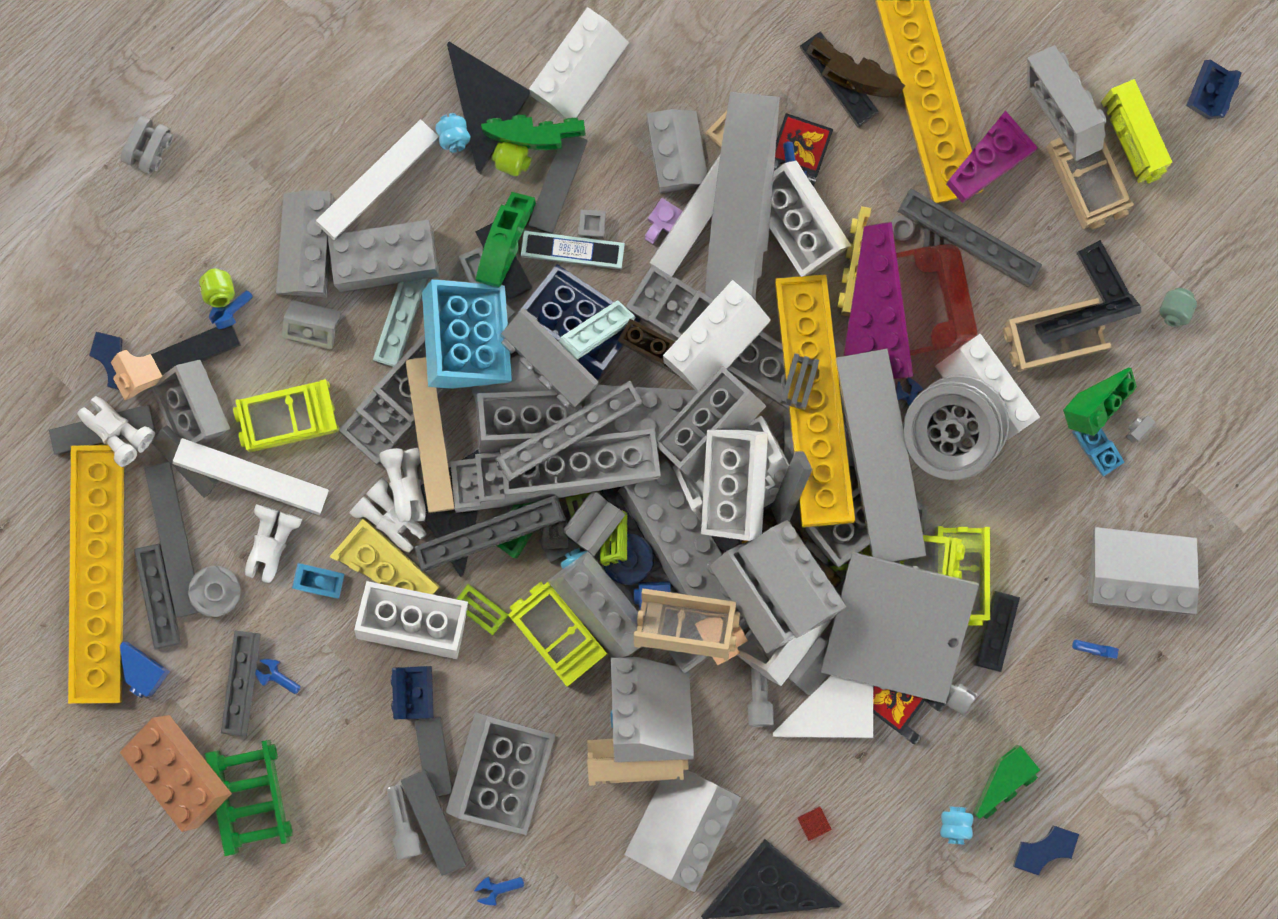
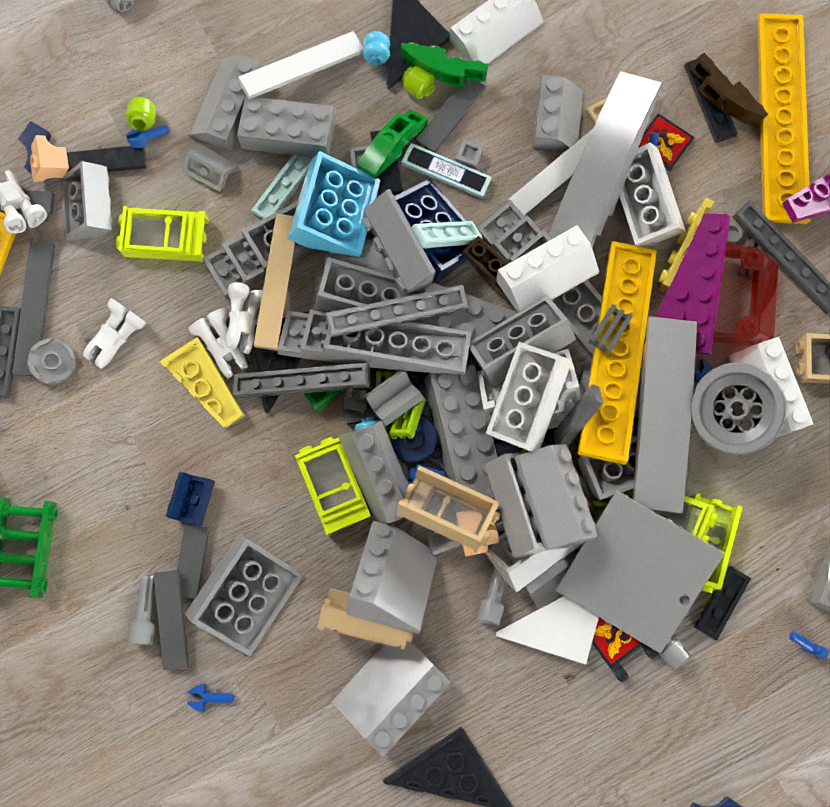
camera: 15 degrees right, 5 degrees down
(167, 443) = (66, 246): dark grey tile -> none
(240, 683) = (46, 446): dark grey tile -> none
(250, 476) = (114, 273): white tile -> none
(276, 676) = (79, 449): blue bar -> none
(318, 581) = (141, 377): dark azure slope -> none
(411, 620) = (209, 435): white slope -> none
(463, 596) = (285, 461): lime tile -> none
(662, 218) = (528, 168): lavender plate -> none
(814, 823) = (509, 726): clear red tile -> none
(957, 825) = (639, 769): medium azure piece -> none
(1007, 776) = (697, 737): green slope -> none

